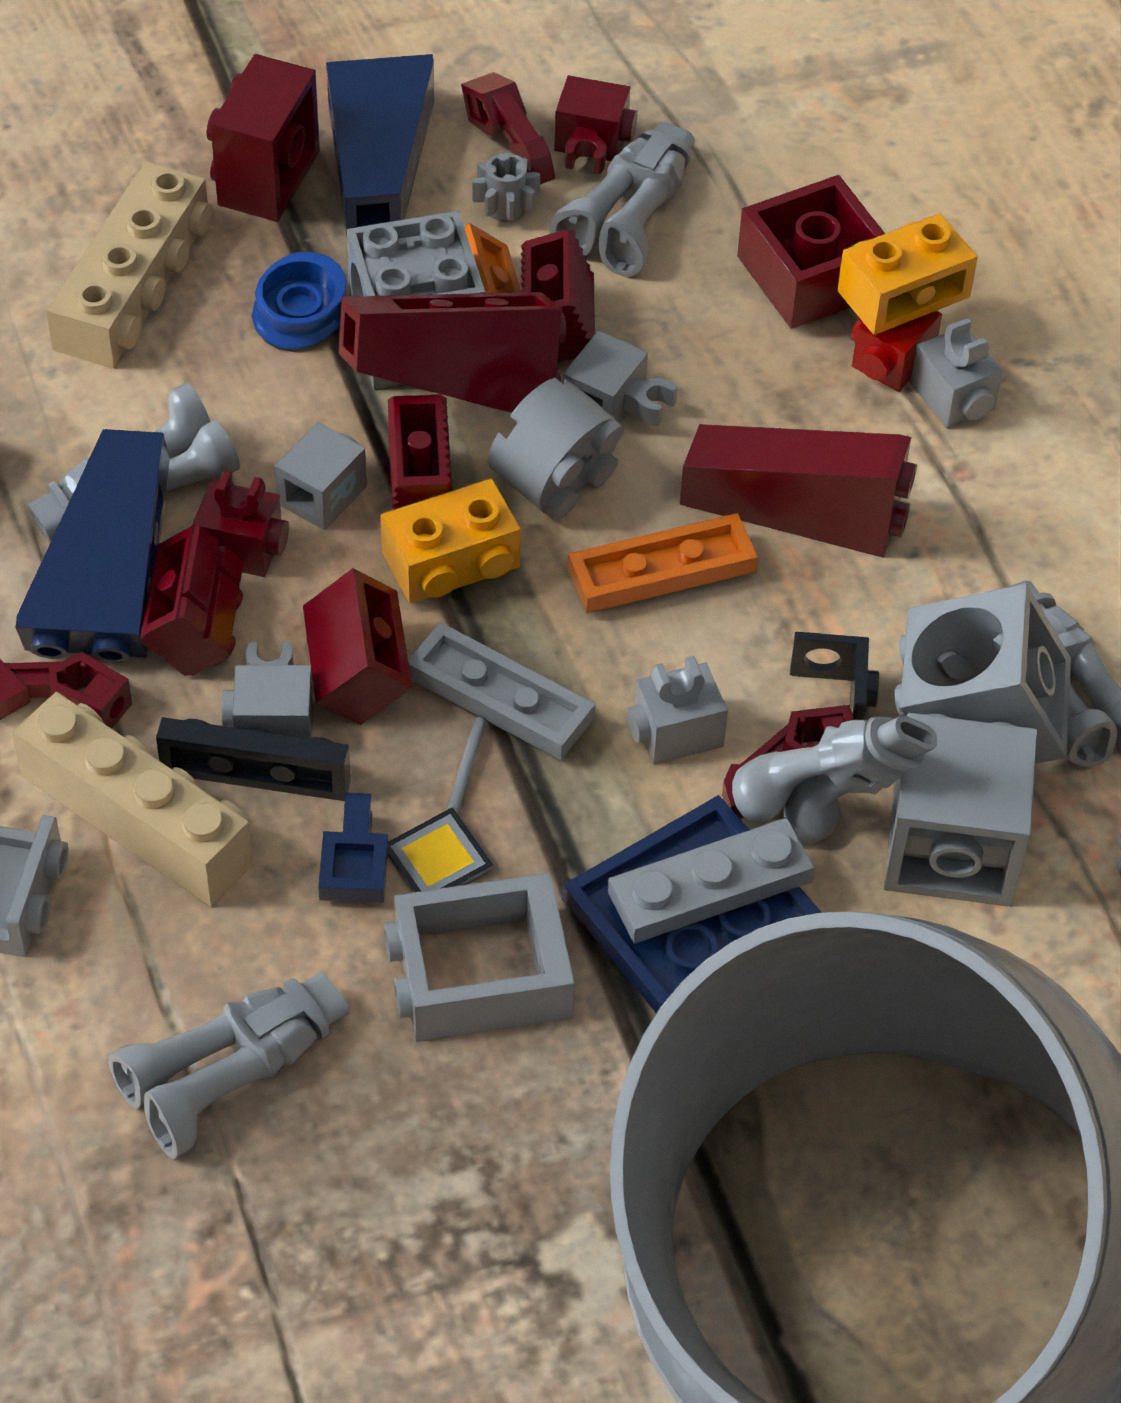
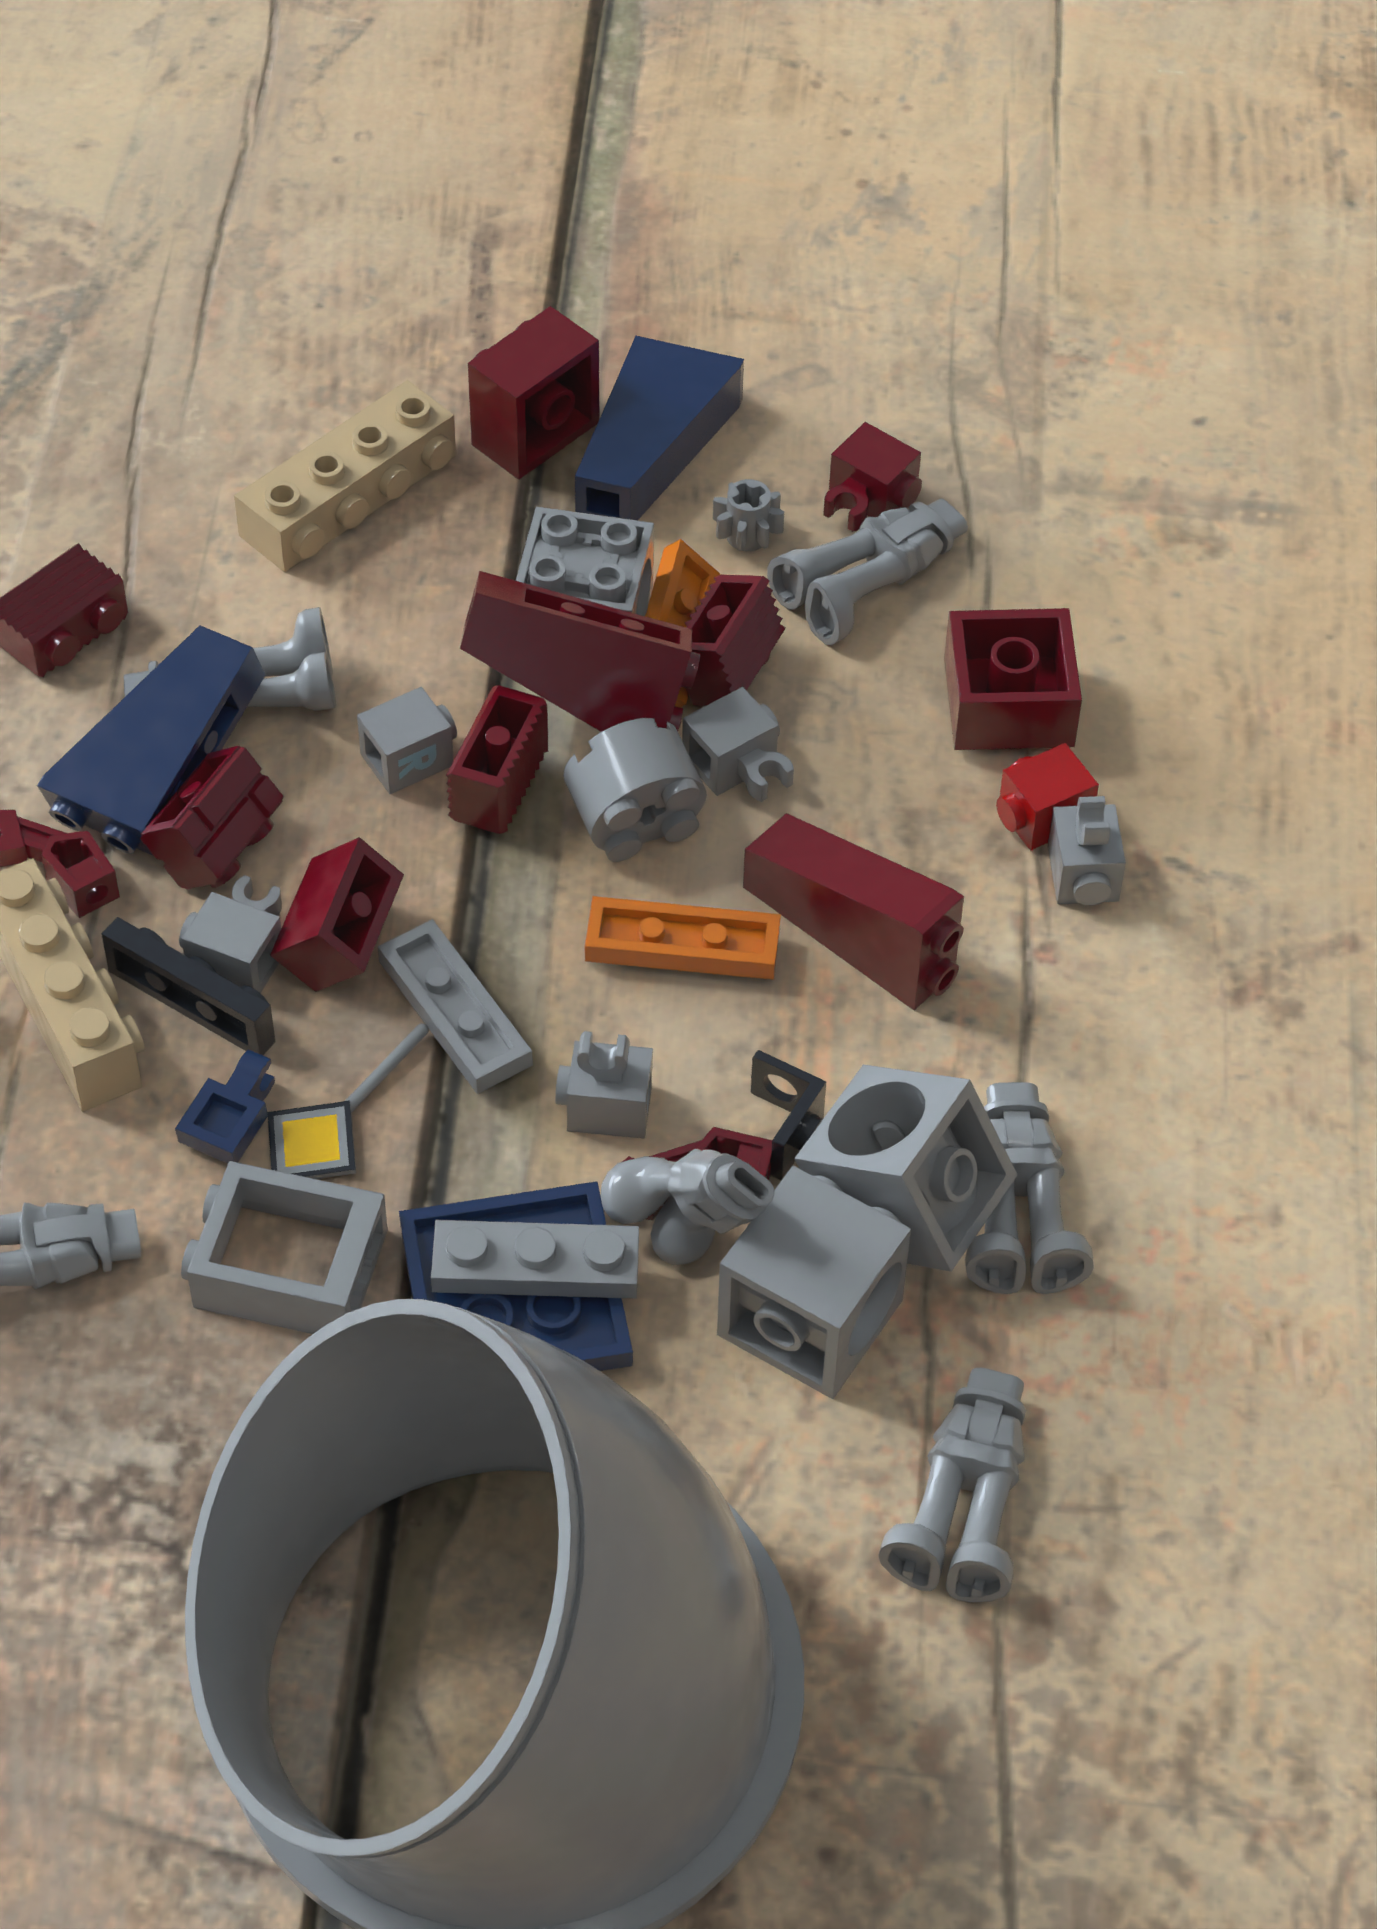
camera: 25 degrees right, 0 degrees up
(244, 521) = (302, 761): dark red brick -> none
(299, 300) = (485, 545): blue piece -> none
(450, 541) = (485, 845): light orange brick -> none
(506, 113) = (787, 441): dark red piece -> none
(907, 273) = (1069, 731): light orange brick -> none

